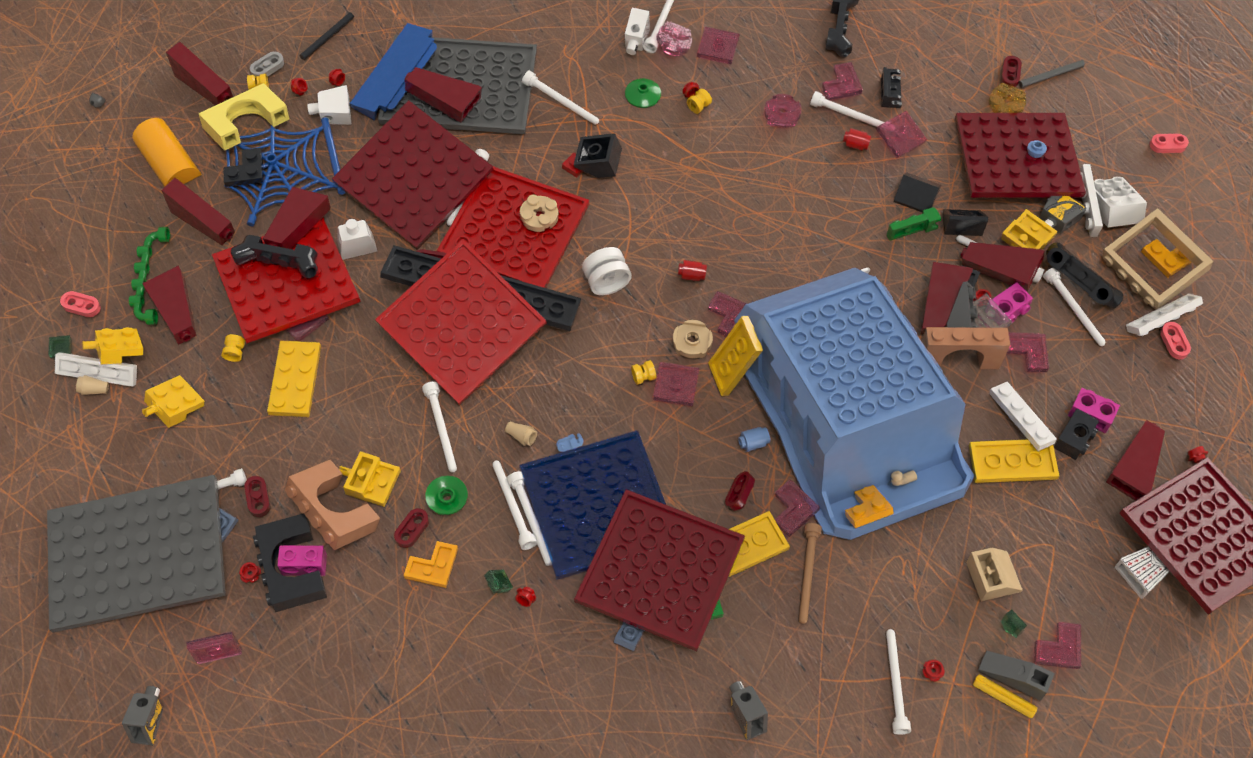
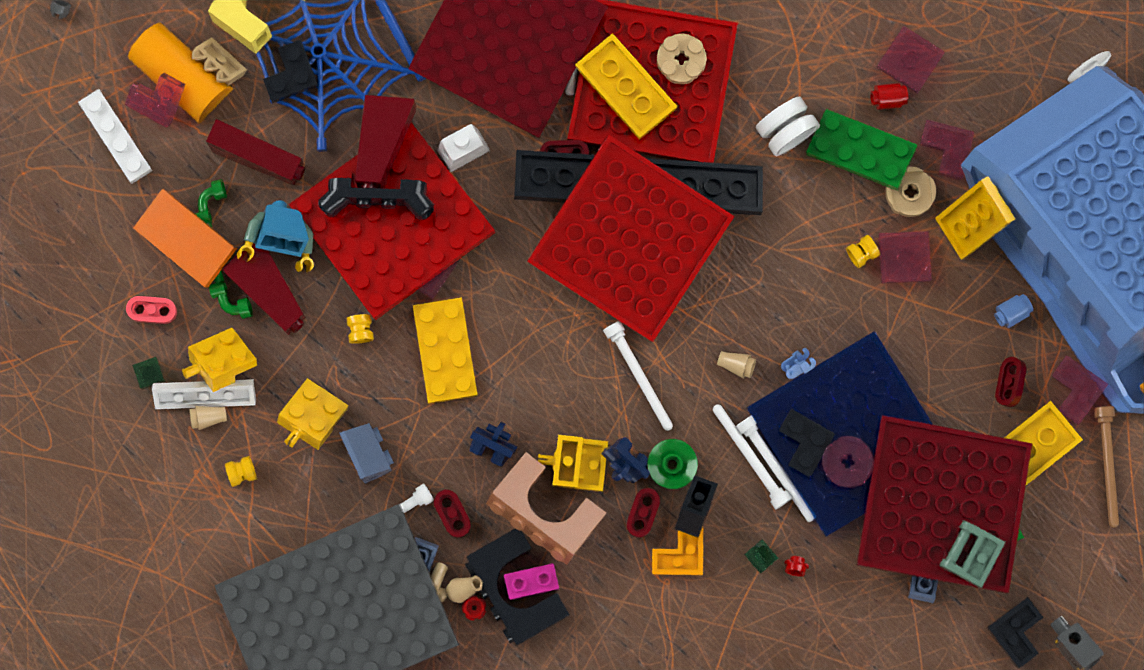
camera: 10 degrees left, 20 degrees up
(101, 429) = (240, 471): none -> yellow wheel
(102, 187) = (115, 136): none -> white plate
(124, 259) = (185, 238): none -> orange tile
(141, 169) = (157, 104): none -> clear pink plate
(196, 151) = (219, 61): none -> tan plate
(196, 266) = (282, 232): none -> dark azure torso
(203, 434) = (366, 452): none -> sand blue slope
(227, 542) = (437, 577): none -> tan arm
(244, 553) = (462, 588): none -> tan cone
(299, 446) = (483, 439): none -> dark blue hips
(407, 484) = (624, 463): none -> dark blue hips
(453, 527) = (696, 506): none -> black brick
(491, 222) = (626, 86): none -> yellow plate
(564, 499) = (812, 441): none -> black plate
(594, 528) = (839, 450): none -> clear pink plate
(661, 302) = (862, 149): none -> green plate
(677, 613) = (980, 558): none -> sand green plate
(694, 688) = (1010, 630): none -> black plate
(715, 250) = (910, 59): none -> clear pink plate

